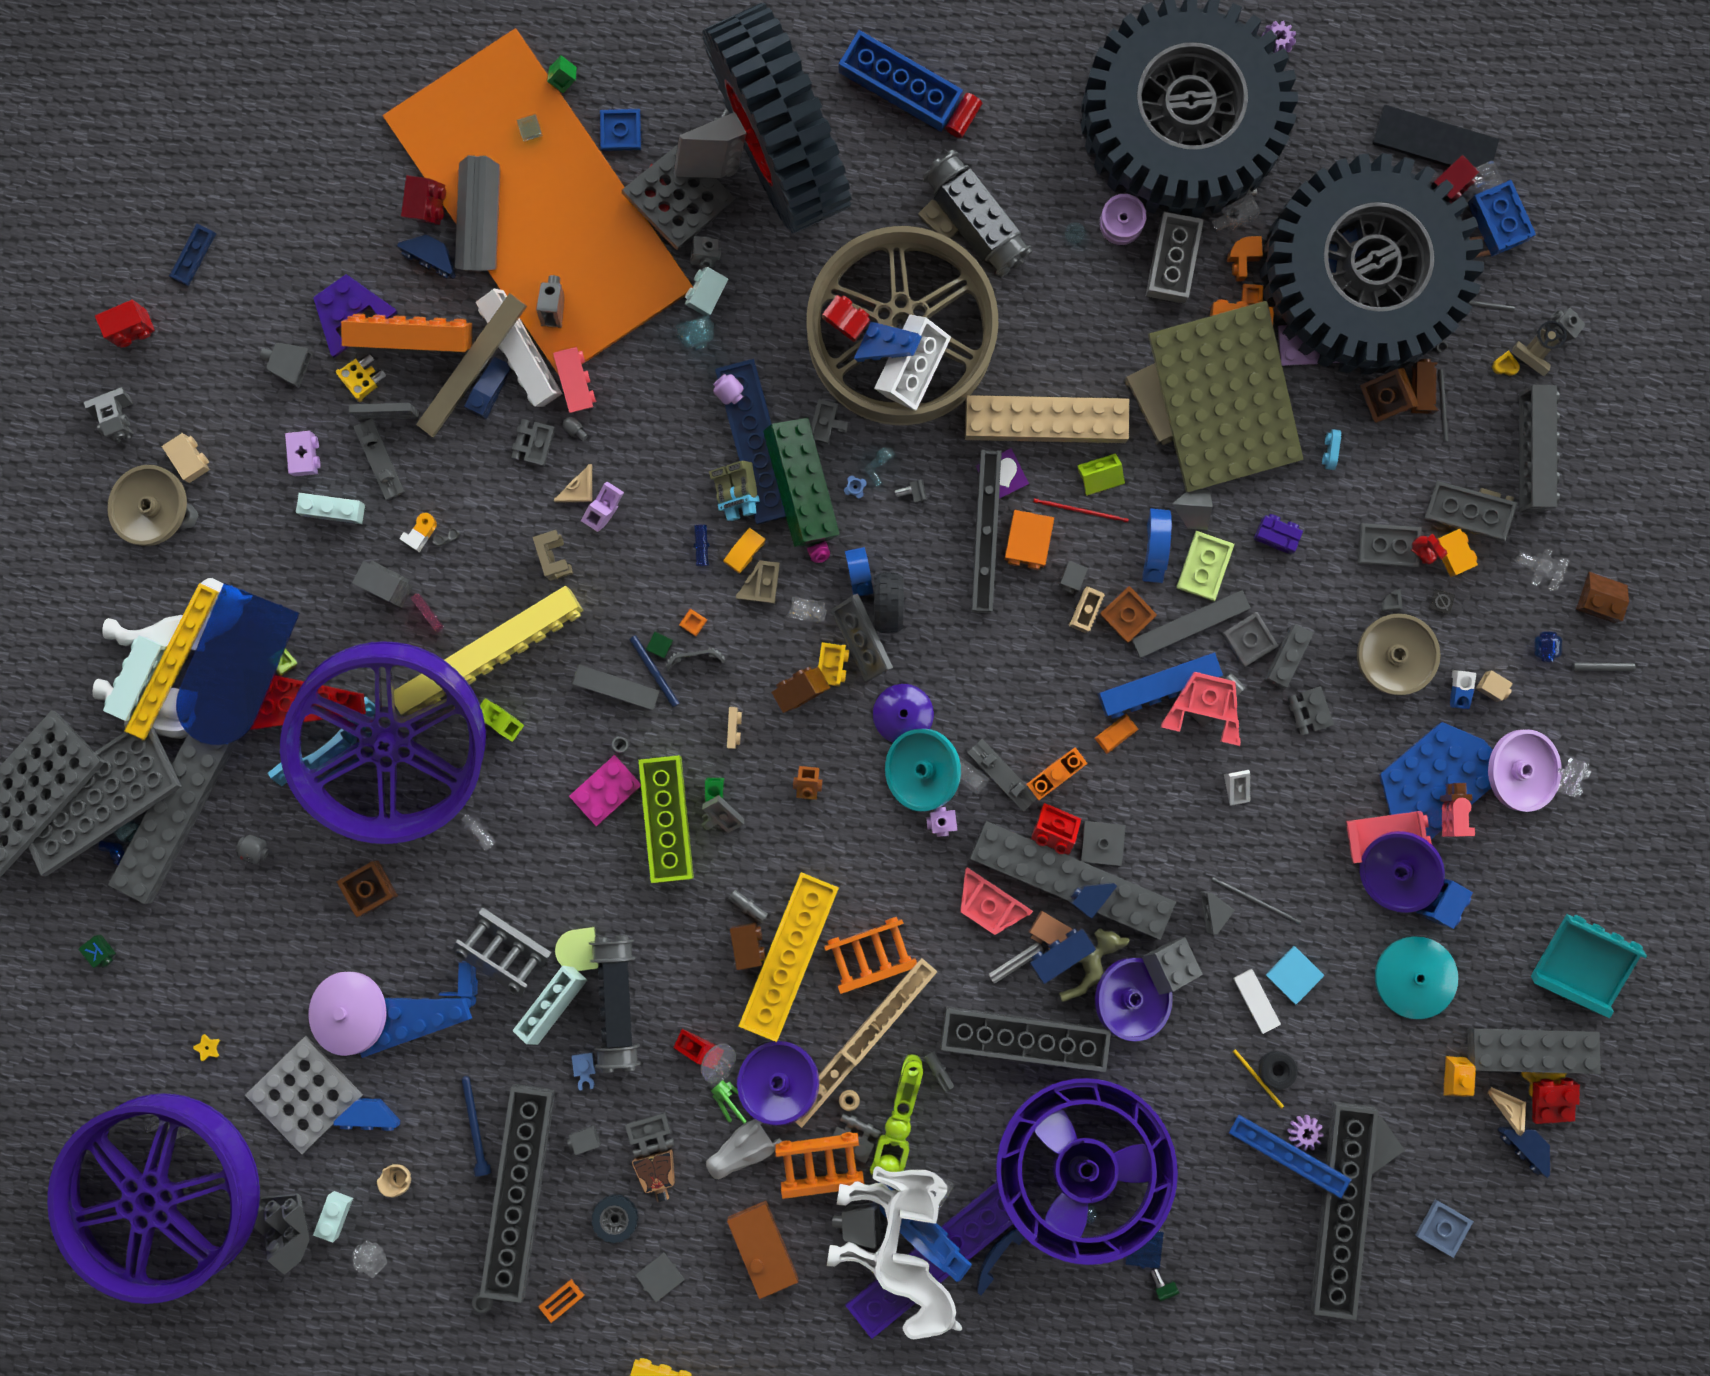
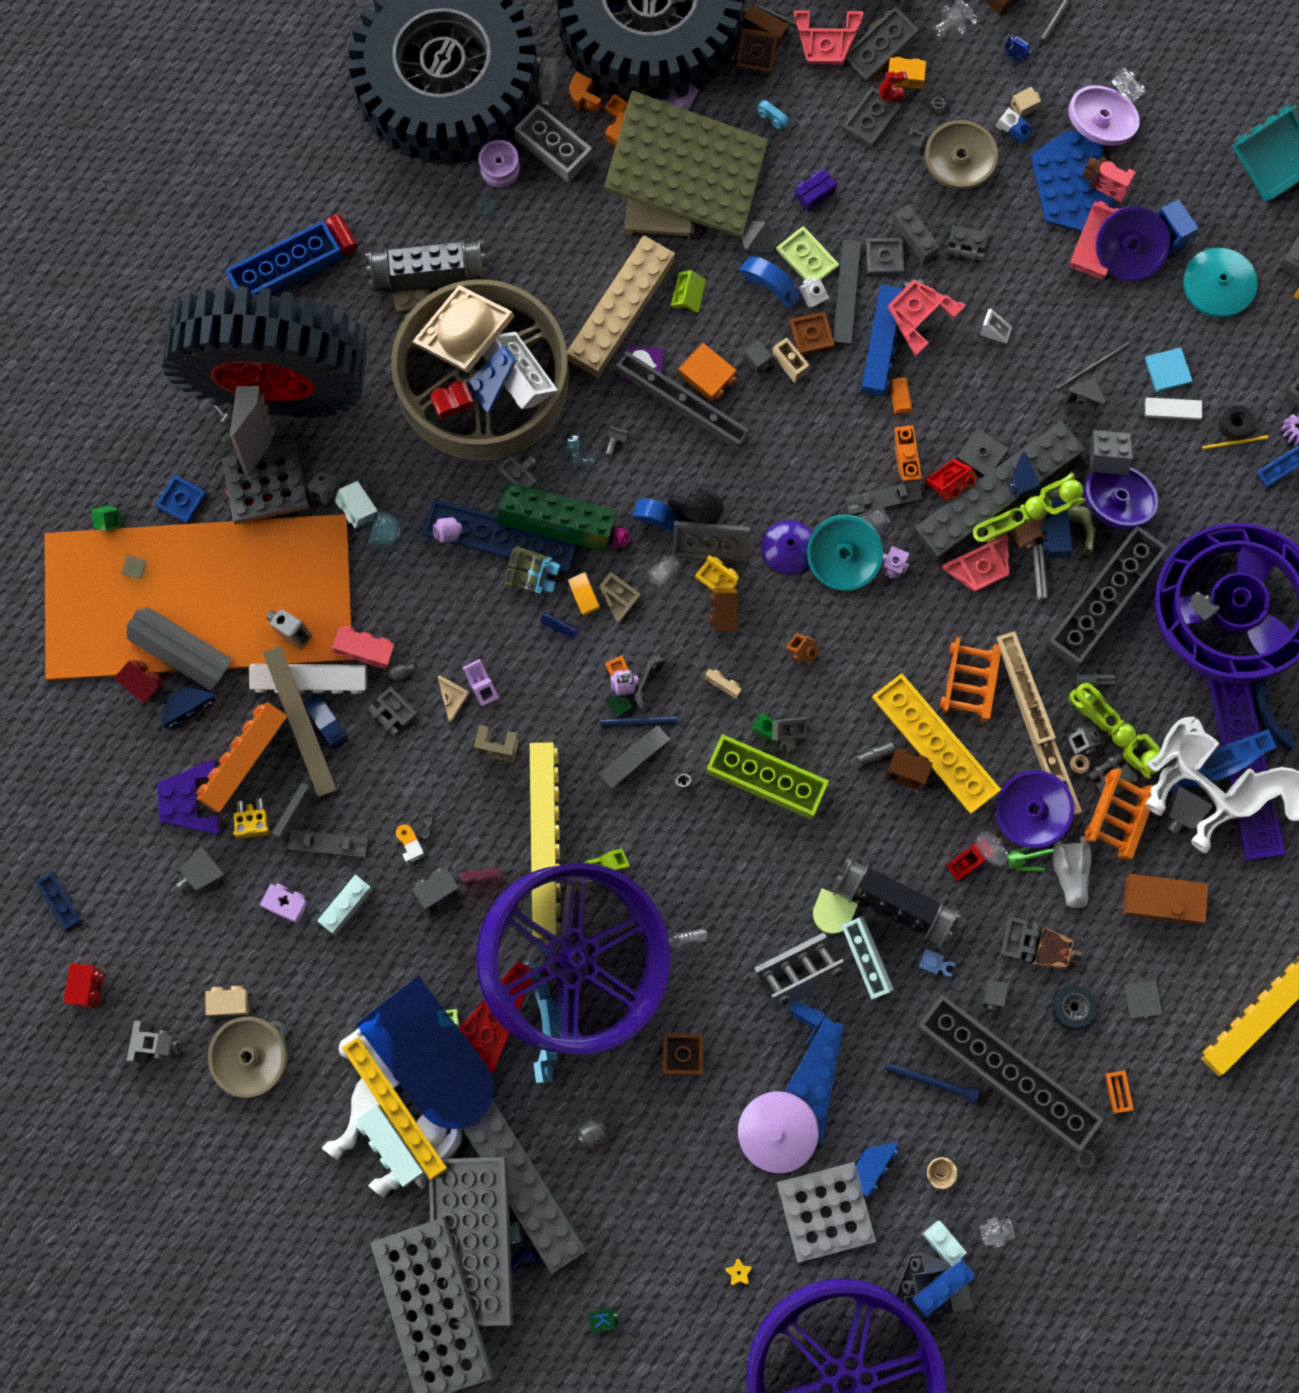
camera: 55 degrees left, 10 degrees down
(280, 1241) = (943, 1287): none -> blue brick
(605, 790) = (714, 815): dark pink plate -> none
(680, 636) = (624, 682): none -> lavender head
(860, 486) = (584, 475): medium blue plate -> none
(872, 1093) = (1085, 740): none -> dark grey brick
(919, 286) = (463, 328): none -> tan piece
(1058, 1139) = (1203, 606): none -> dark grey brick
(1064, 925) = (1034, 509): none -> lime piece
(1081, 510) = (707, 323): red piece -> none
(1169, 592) = (813, 291): none -> white brick
(1438, 458) = (827, 45): none -> coral wing

